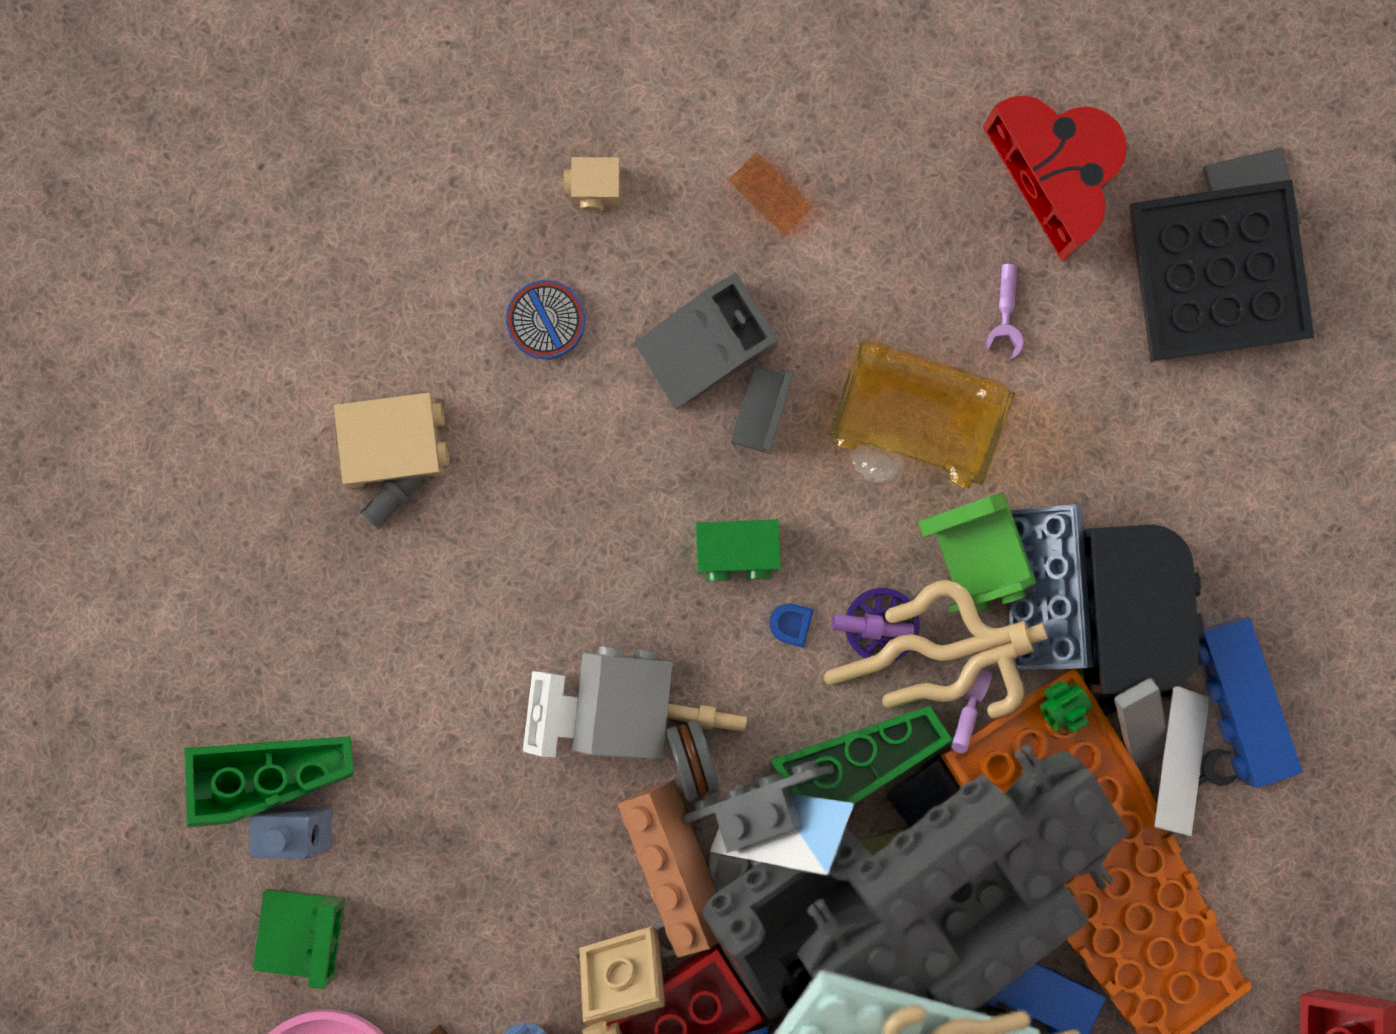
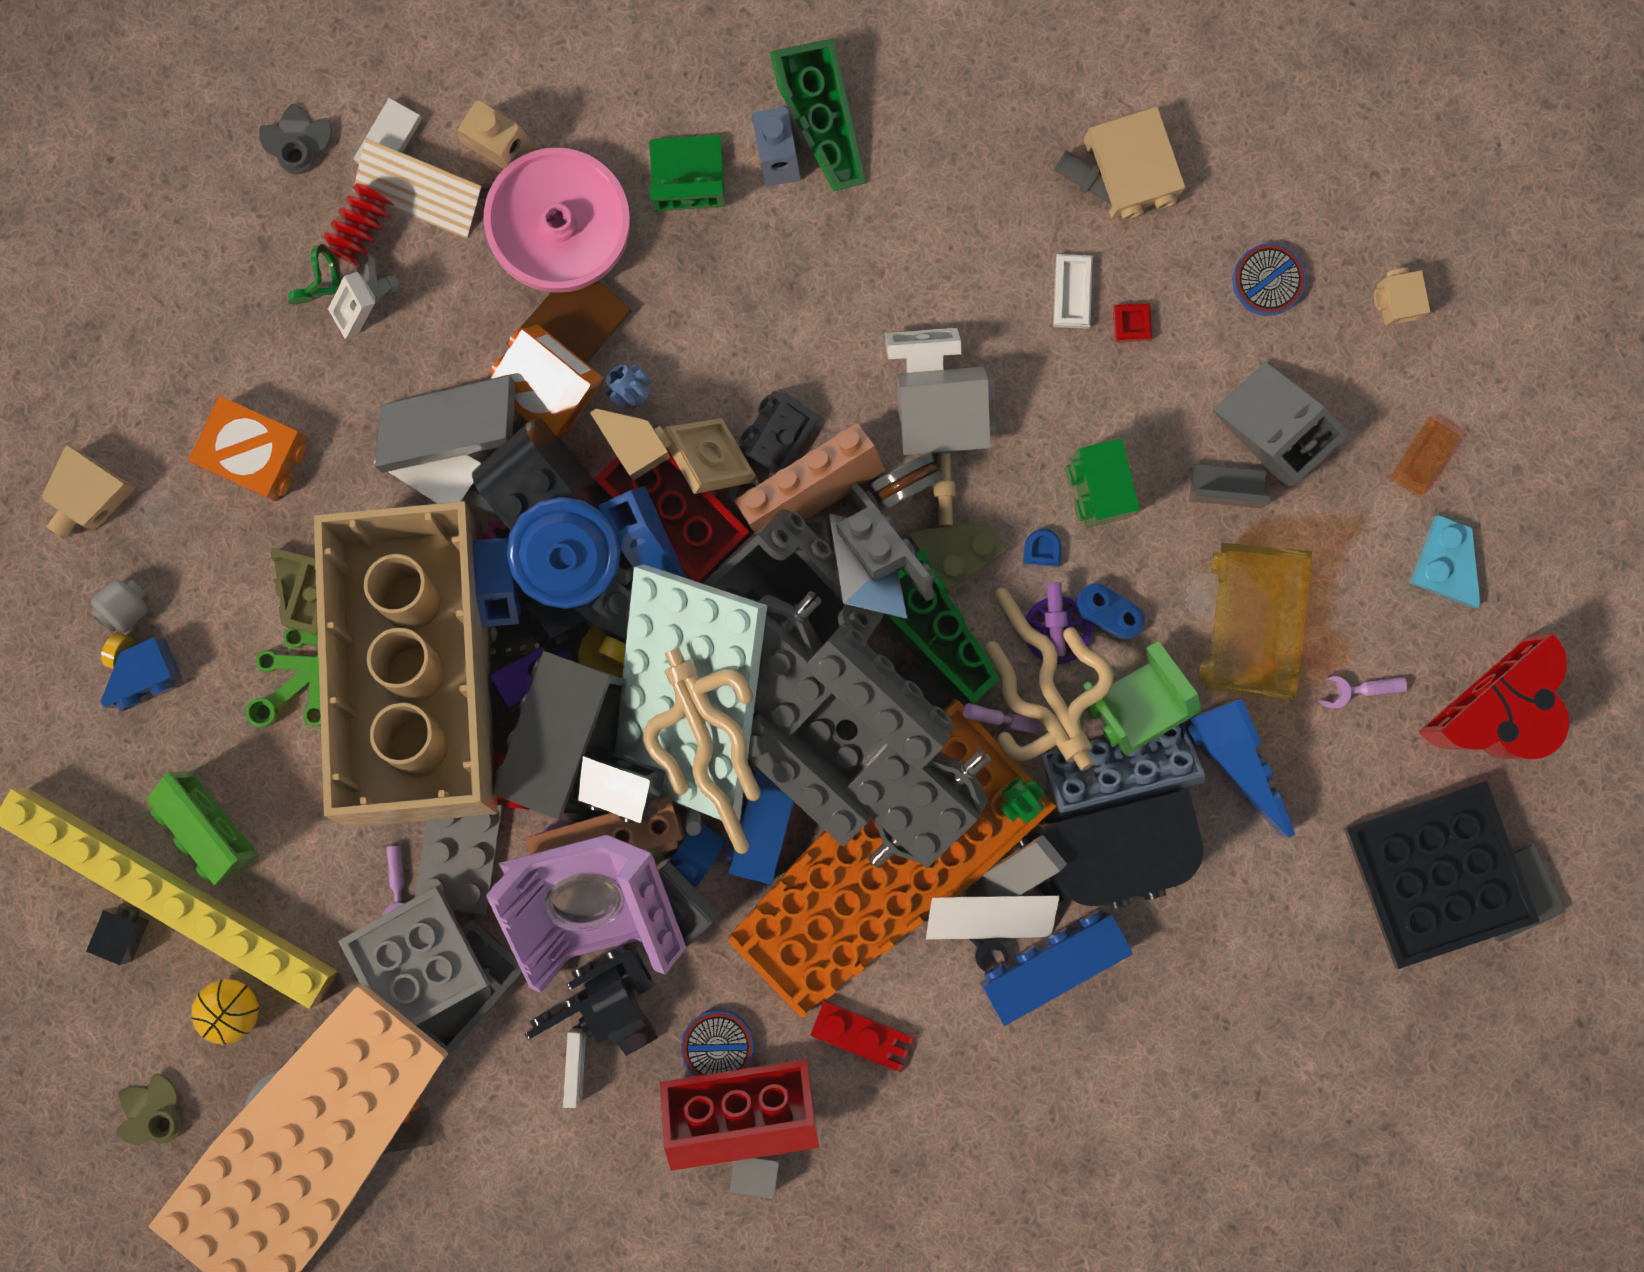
camera: 80 degrees right, 0 degrees up
(516, 533) = (1073, 291): none -> white tile
(563, 476) = (1132, 322): none -> red tile
(608, 890) = (777, 431): none -> black bracket
(775, 715) = (959, 549): none -> olive wing
(875, 564) = (1111, 613): none -> blue plate
(888, 192) = (1448, 563): none -> medium azure wing
(1045, 465) = (1230, 743): none -> blue wedge
(1280, 924) = (860, 1035): none -> red hinge

